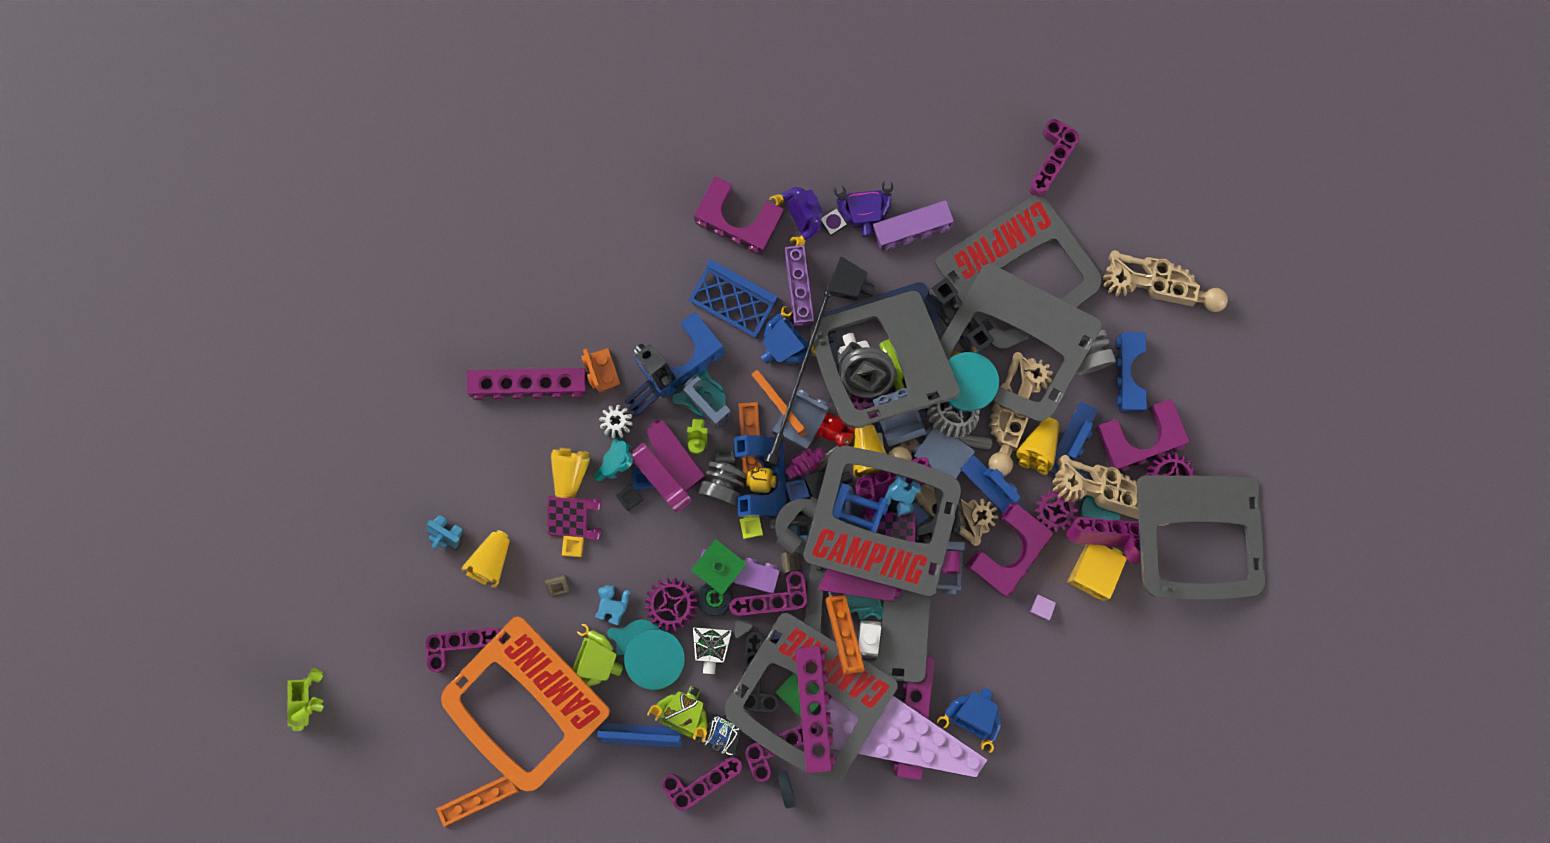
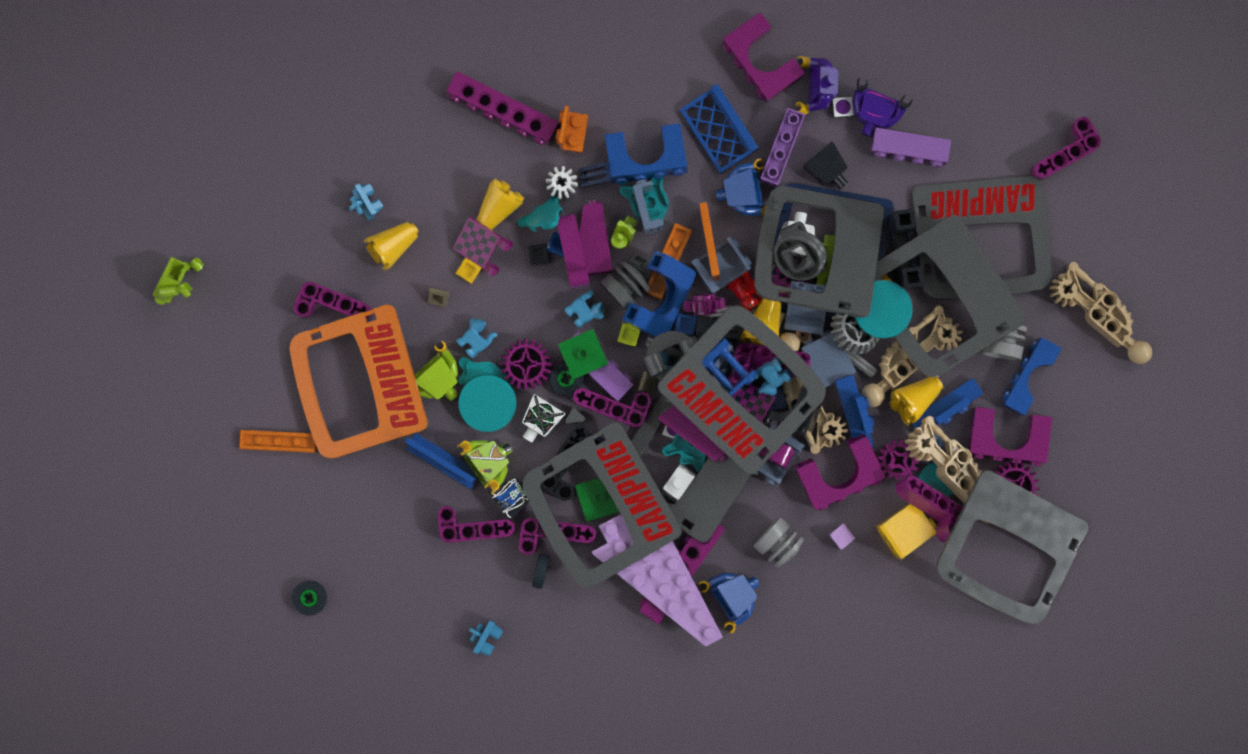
camera: 30 degrees right, 5 degrees up
(654, 365) = (618, 152): black torso -> none
(695, 526) = (585, 313): none -> dark azure animal
(761, 480) = (658, 299): yellow head -> none
(772, 459) = (677, 286): black piece -> none
(813, 762) = (613, 468): magenta brick -> none
(844, 634) = (659, 468): orange tile -> none
(990, 644) = (778, 542): none -> light grey wheel

